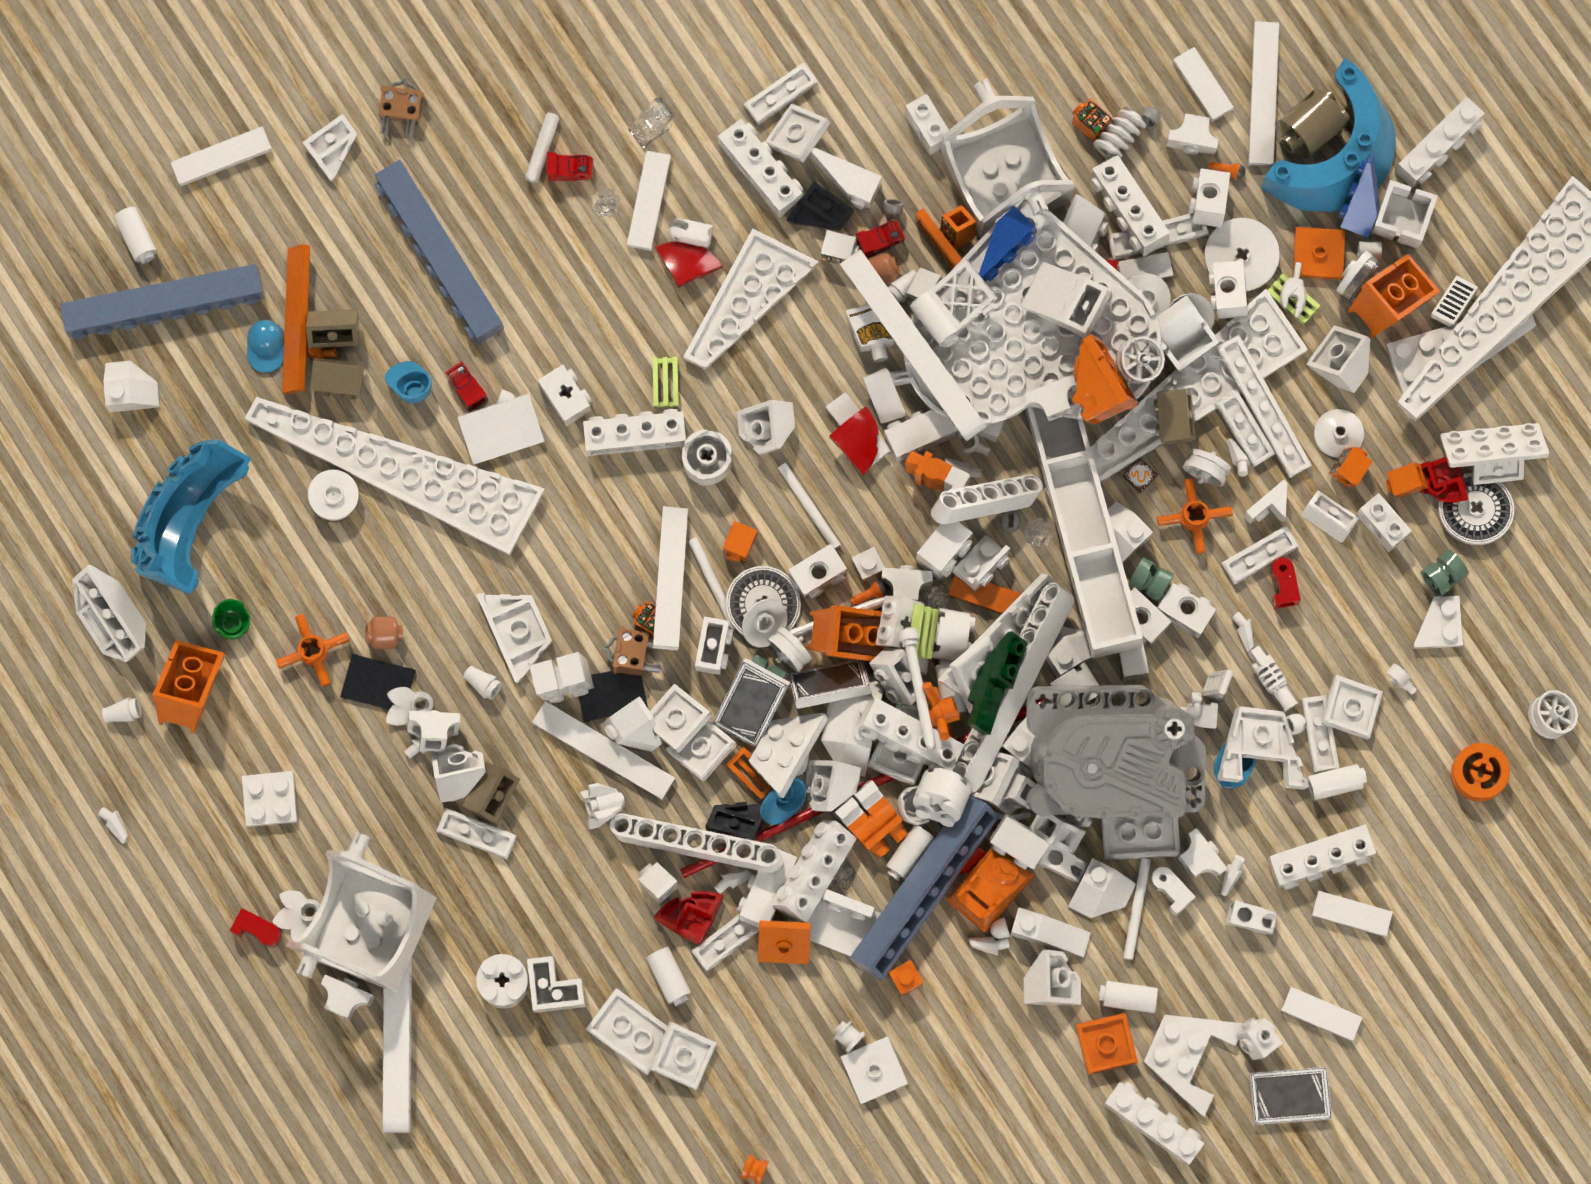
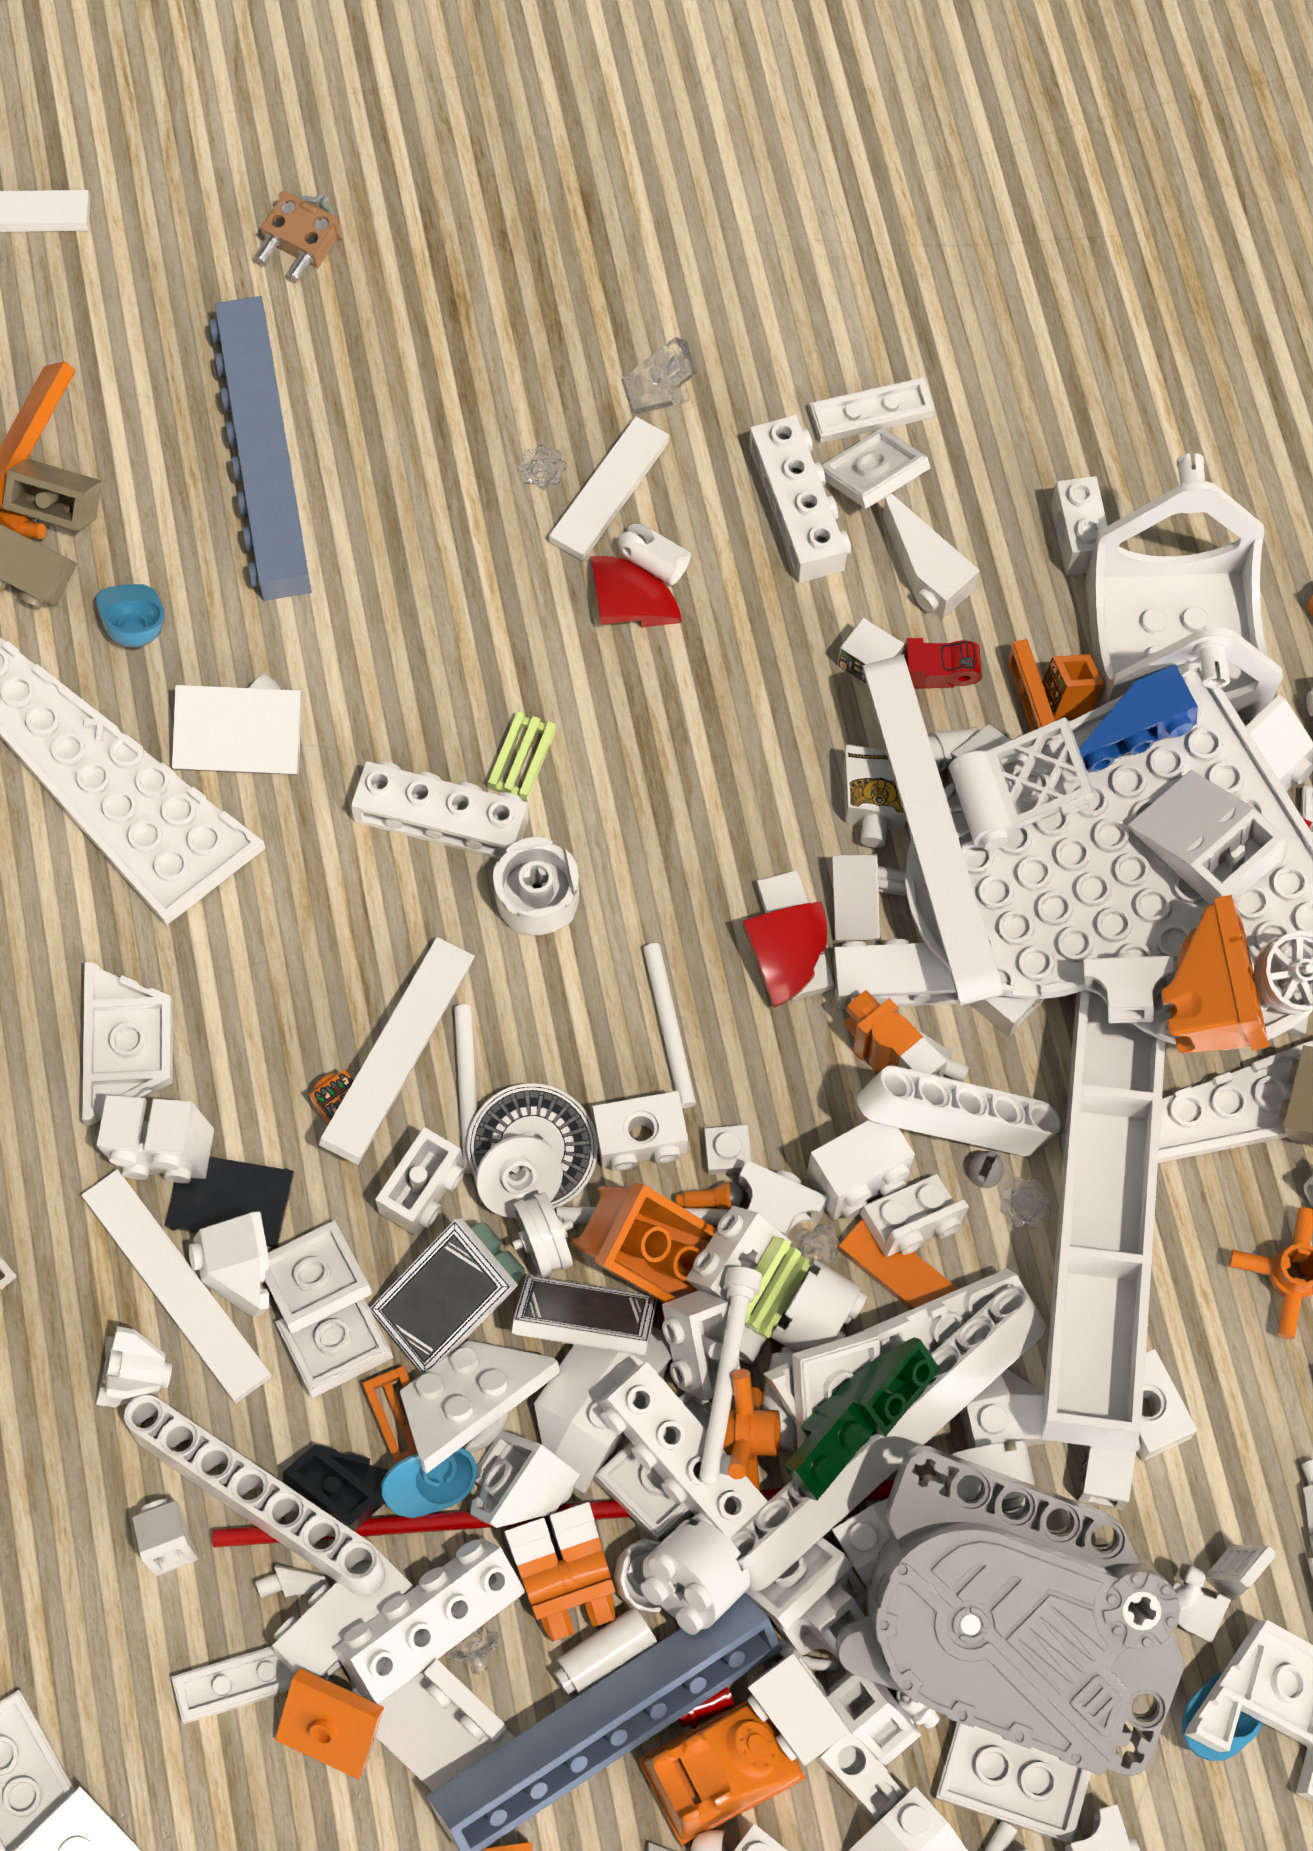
camera: 20 degrees right, 10 degrees down
(331, 145) = (175, 249): white wing -> none
(466, 386) = (214, 650): red leg -> none
(484, 683) = (34, 1104): white cone -> none
(542, 147) = (482, 360): white axle -> none
(567, 408) = (355, 694): white brick -> none
(569, 167) = (508, 398): red leg -> none
(631, 652) = (286, 1145): medium nougat piece -> none
(669, 976) = (114, 1706): white brick -> none
(691, 916) = (197, 1616): red brick -> none
(739, 542) = (534, 1037): orange brick -> none
(754, 285) = (716, 663): white wing -> none
(766, 425) = (652, 871): white slope -> none
(820, 210) = (867, 590): black wing -> none
(886, 267) = (936, 706): nougat head -> none
(893, 208) = (979, 628): light grey hinge -> none
(978, 447) = (975, 1032): white piece -> none
(1128, 529) = (1178, 1255): white slope -> none
(1140, 475) = (1227, 1175): tile -> none
(1150, 579) = (1186, 1348): sand green wheel -> none
(1191, 623) = (1231, 1448): white brick -> none

